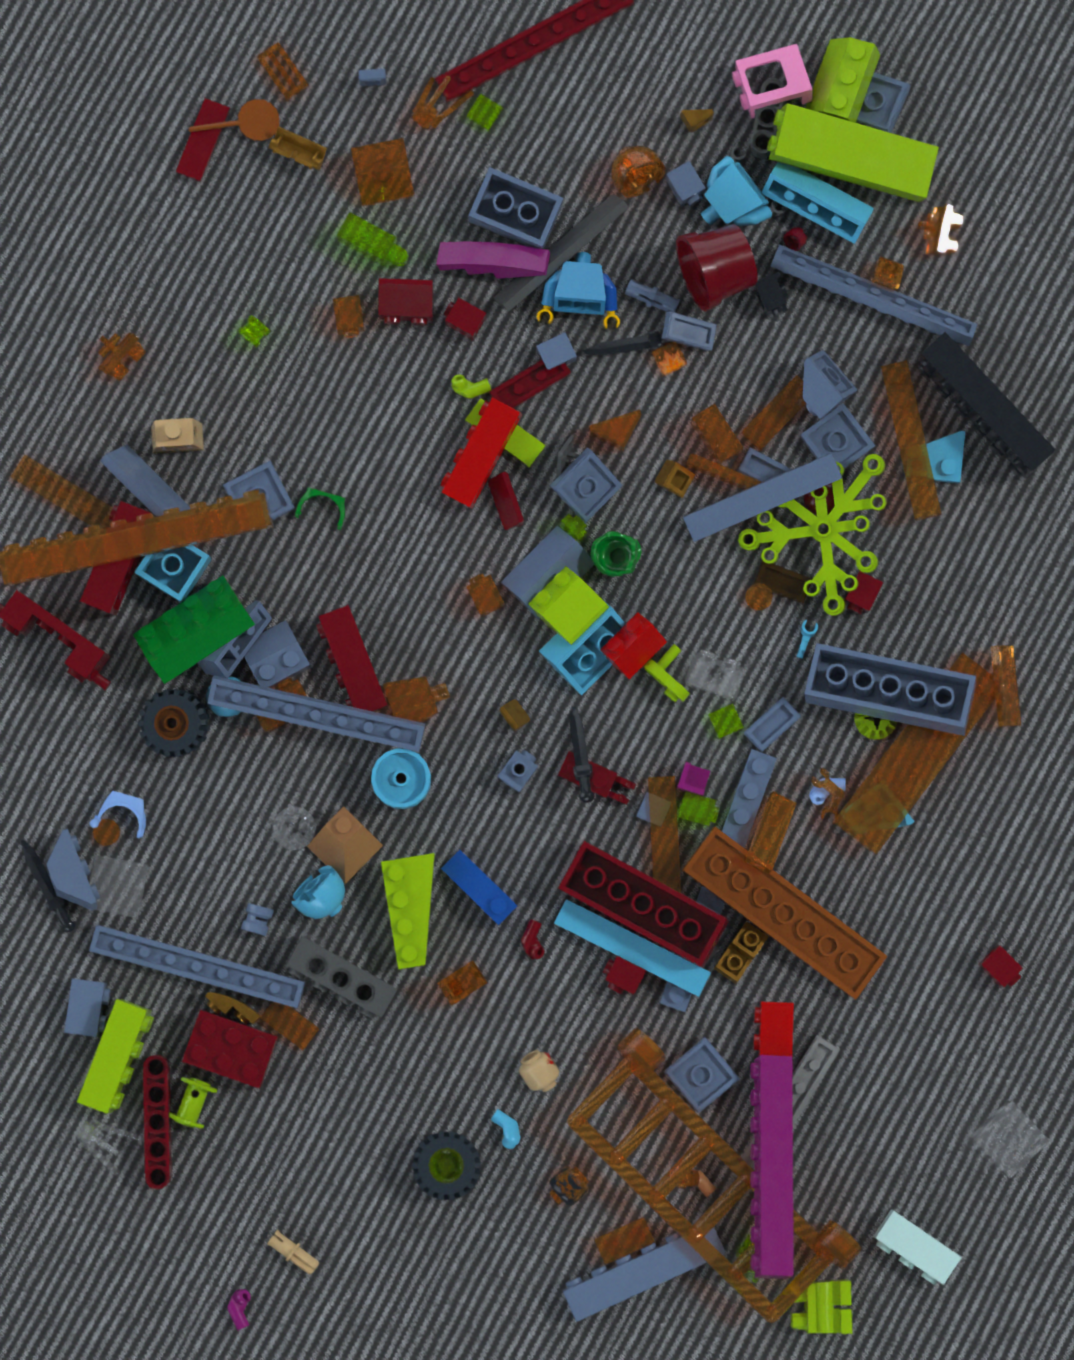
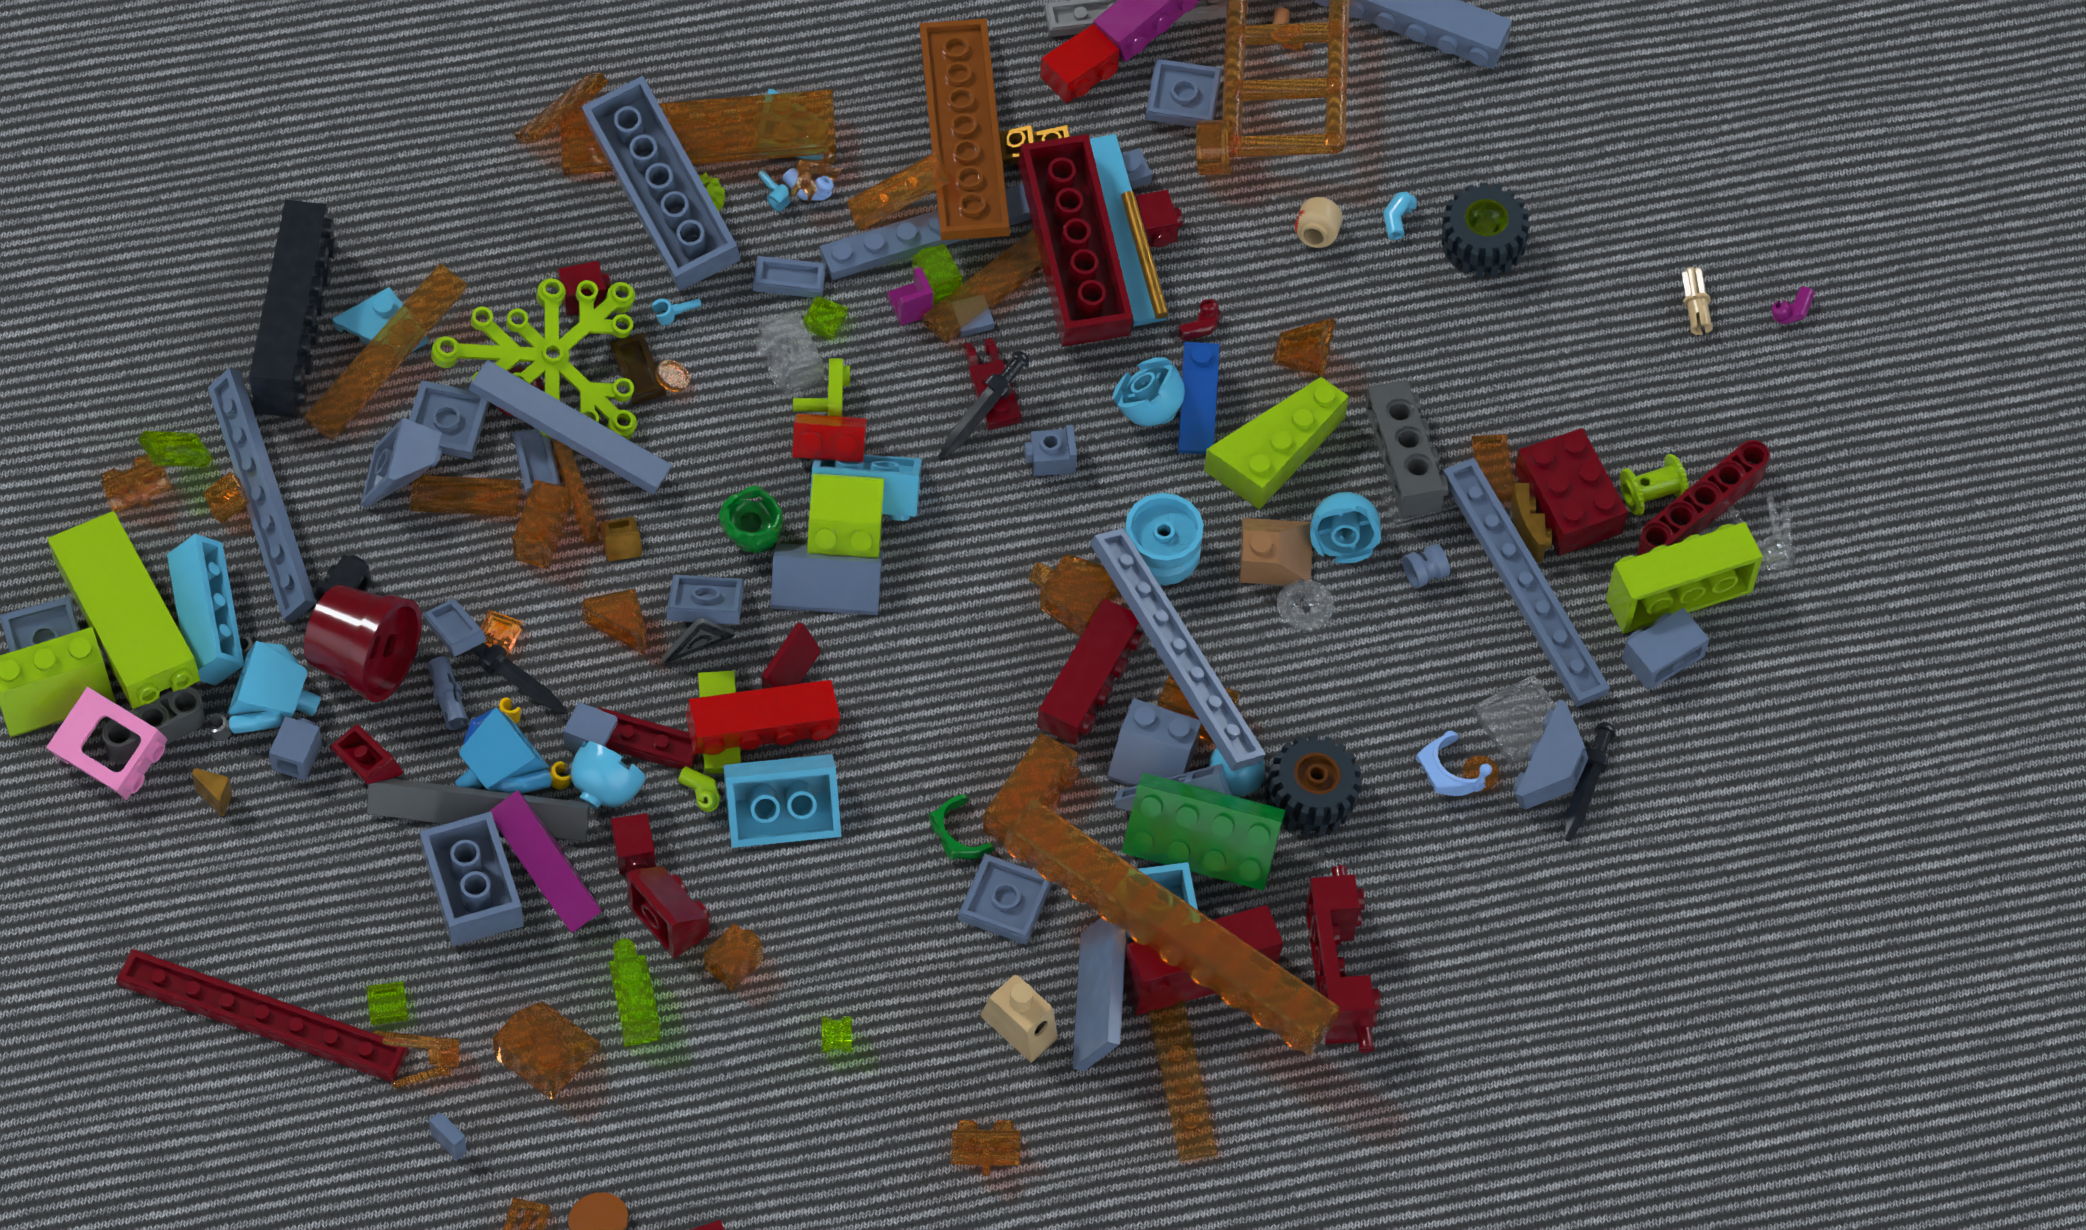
camera: 130 degrees left, 25 degrees down
(298, 148) = (600, 1159): pearl gold hinge -> none
(307, 564) = (1039, 775): none -> clear orange brick
(423, 422) = (782, 800): none -> medium azure slope
(484, 594) = (906, 609): clear orange brick -> none
(504, 857) = (1150, 394): none -> medium azure cylinder
(514, 714) = (1000, 497): pearl gold slope -> none
(517, 333) = (604, 777): none -> medium azure cylinder
(568, 1186) = (1397, 124): head -> none
(575, 527) = (757, 581): clear neon green plate -> none
(601, 941) = (1144, 255): none -> pearl gold bar
(624, 1240) = (1398, 46): clear orange plate -> none
(636, 169) = (322, 802): clear orange cylinder -> none
(644, 215) = (366, 756): none -> dark red slope
(799, 242) = (263, 607): dark red hinge -> none
(832, 765) = (778, 197): none -> medium azure hand
(942, 266) = (175, 449): none -> clear neon green tile

